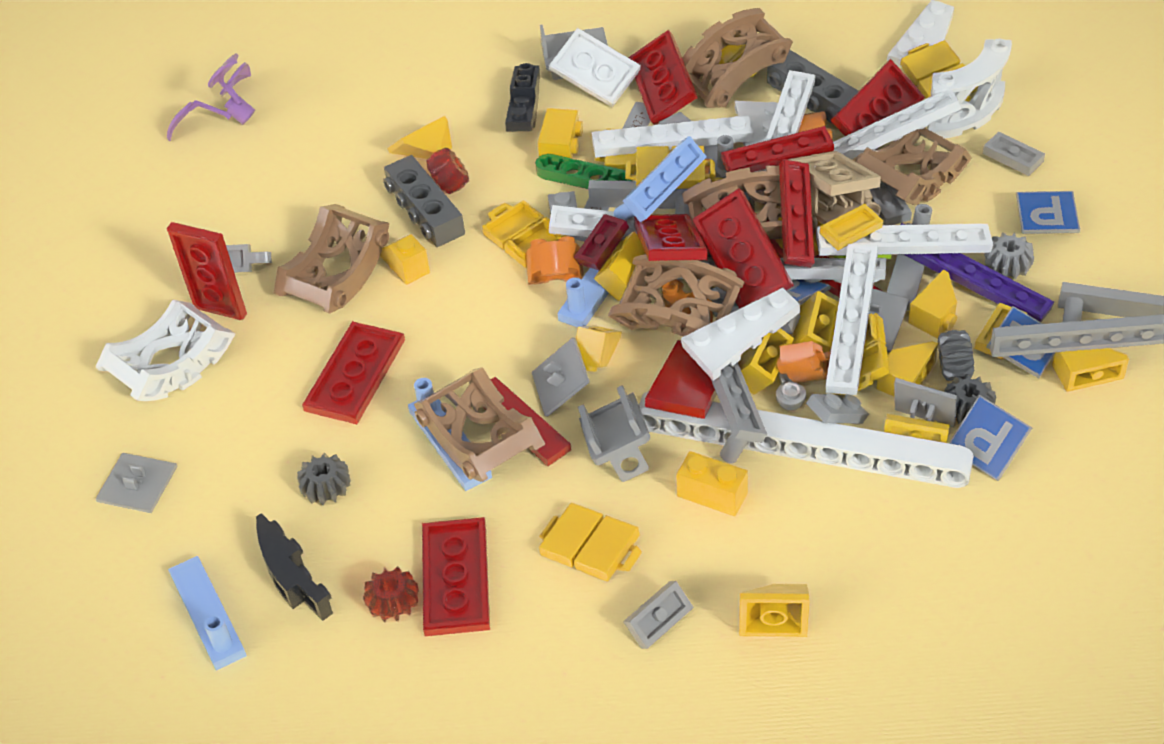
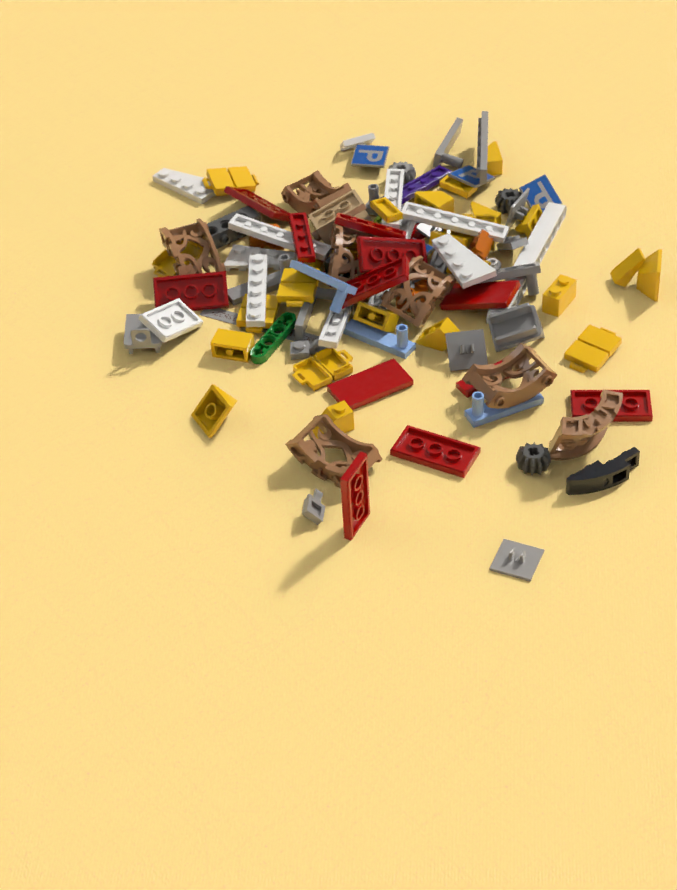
camera: 85 degrees left, 5 degrees down
(132, 358) = (409, 561): white fence -> none
(207, 613) = (634, 513): light blue piece -> none
(236, 106) = (101, 516): medium lavender plant -> none
(366, 536) = (583, 433): none -> medium nougat fence
(391, 594) = (627, 427): clear red gear -> none
(424, 201) = (279, 412): dark grey brick -> none
(447, 170) = (258, 395): clear red gear -> none
(492, 287) = (371, 384): none -> red tile
(523, 98) = (183, 362): black slope -> none
(553, 260) = (360, 351): orange cylinder -> none
(601, 242) = (358, 320): dark red plate -> none
(658, 614) = (653, 327): light grey plate -> none
(790, 569) = (627, 268): none -> yellow slope
(899, 124) = (292, 185): white plate -> none
(955, 354) = (480, 195): dark grey gear -> none
(982, 72) = (259, 165): white fence -> none
(1013, 153) = (313, 163): light grey plate -> none
(1085, 193) = (351, 143): none -> white tile

